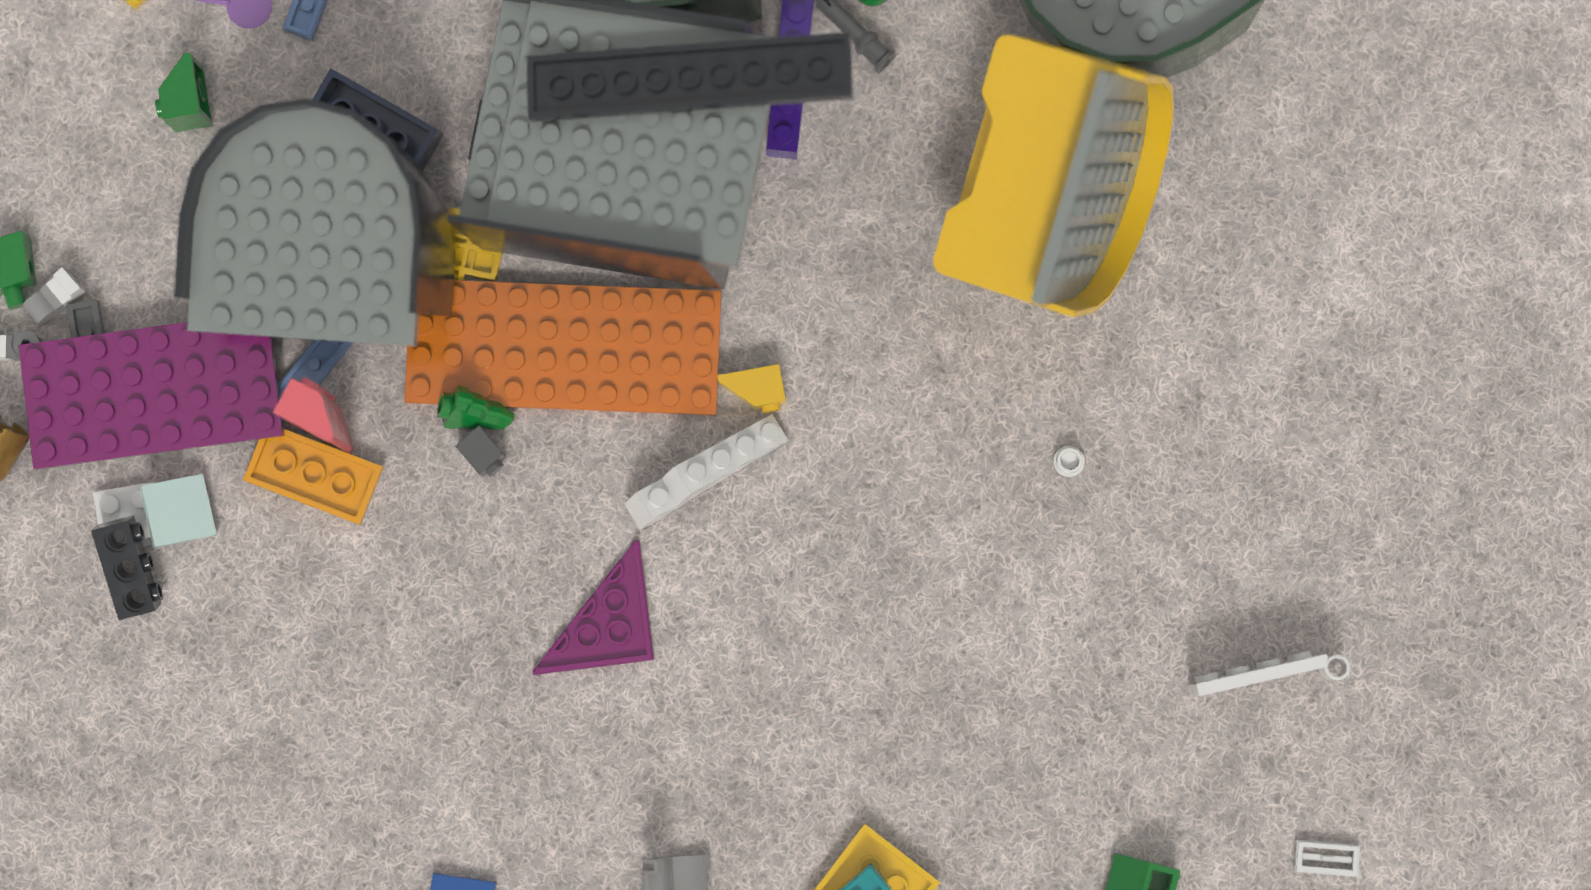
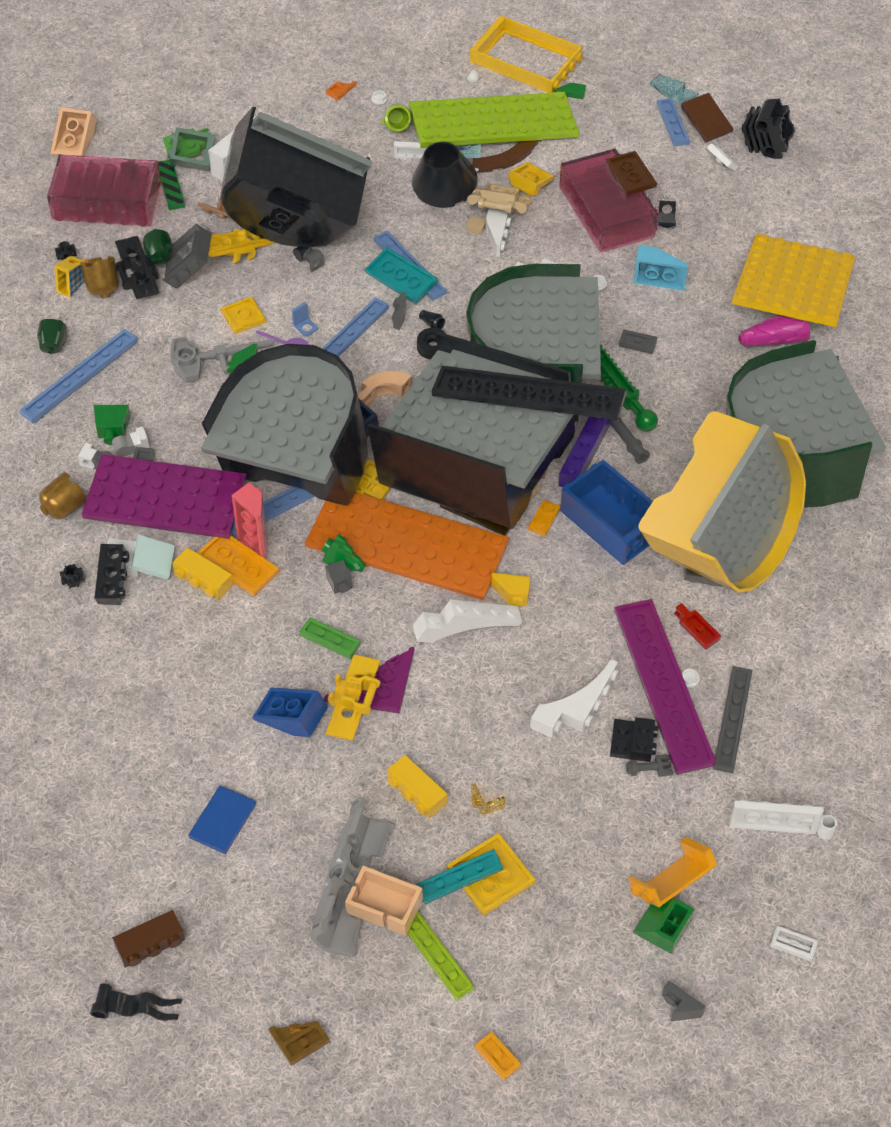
camera: 15 degrees right, 30 degrees down
(57, 587) = (71, 576): none -> black gear
(79, 97) = (188, 360): none -> light grey bar
(266, 514) = (202, 574): none -> yellow brick
(419, 45) = (384, 383): none -> light nougat arch
(491, 715) = (291, 710): none -> blue slope
(505, 565) = (330, 638): none -> bright green plate
(569, 664) = (347, 694): none -> yellow piece
(721, 785) = (416, 787): none -> yellow brick
(763, 230) = (544, 518): none -> light orange plate
(819, 782) = (484, 808): none -> clear yellow bracket
(869, 195) = (607, 510): none -> blue container
(919, 573) = (577, 708): none -> white arch
(1014, 597) = (634, 739): none -> black plate
(1027, 647) = (661, 765): none -> dark grey hinge
(1034, 487) = (665, 687): none -> magenta plate
(1057, 365) = (697, 626): none -> red plate
(1136, 817) = (678, 876): none -> light orange panel
(1150, 511) = (732, 719): none -> dark grey tile

